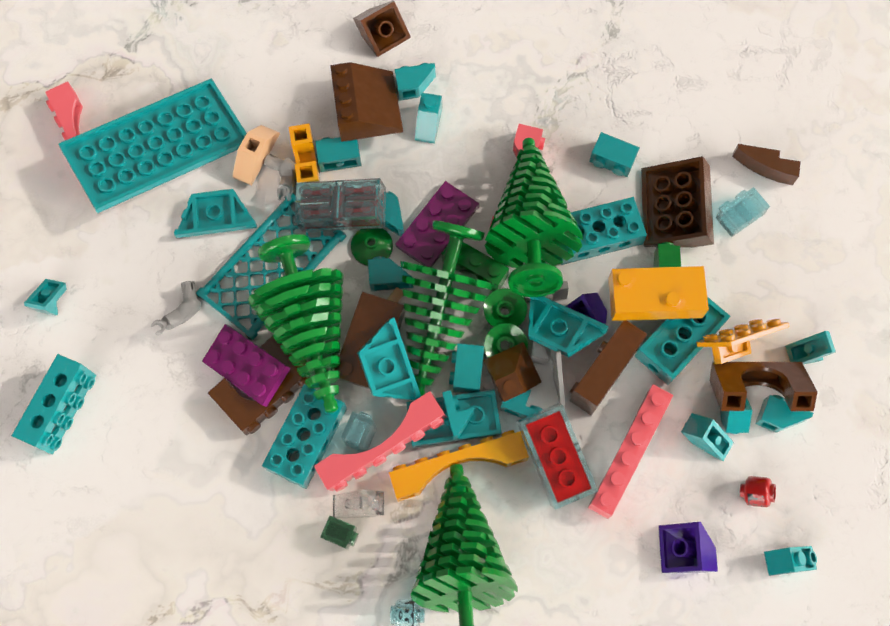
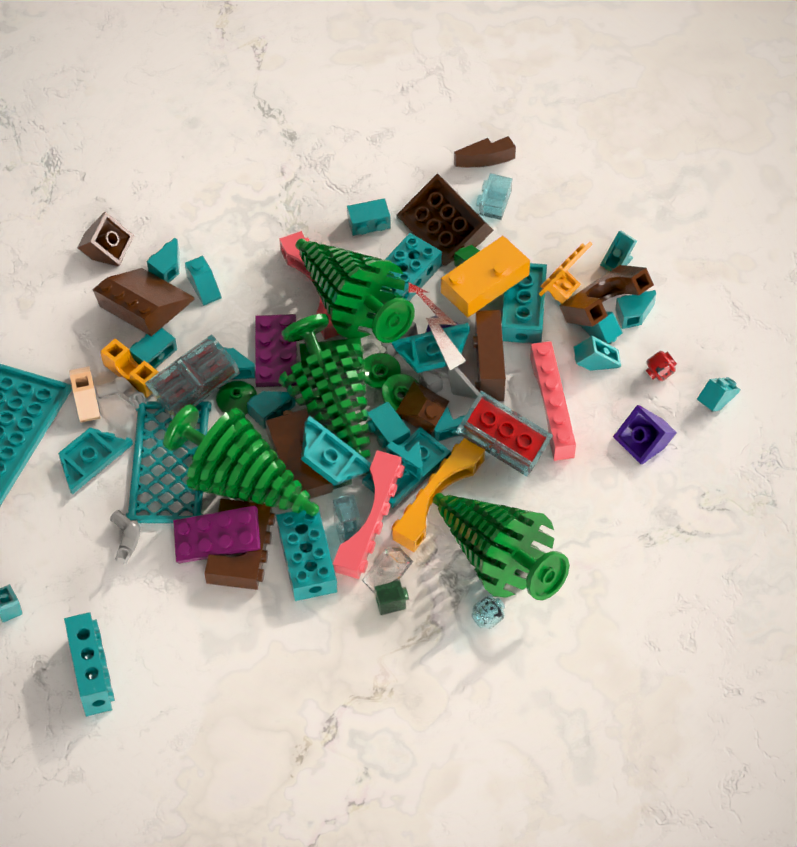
camera: 40 degrees left, 15 degrees down
(566, 344) = (450, 353): none -> sticker

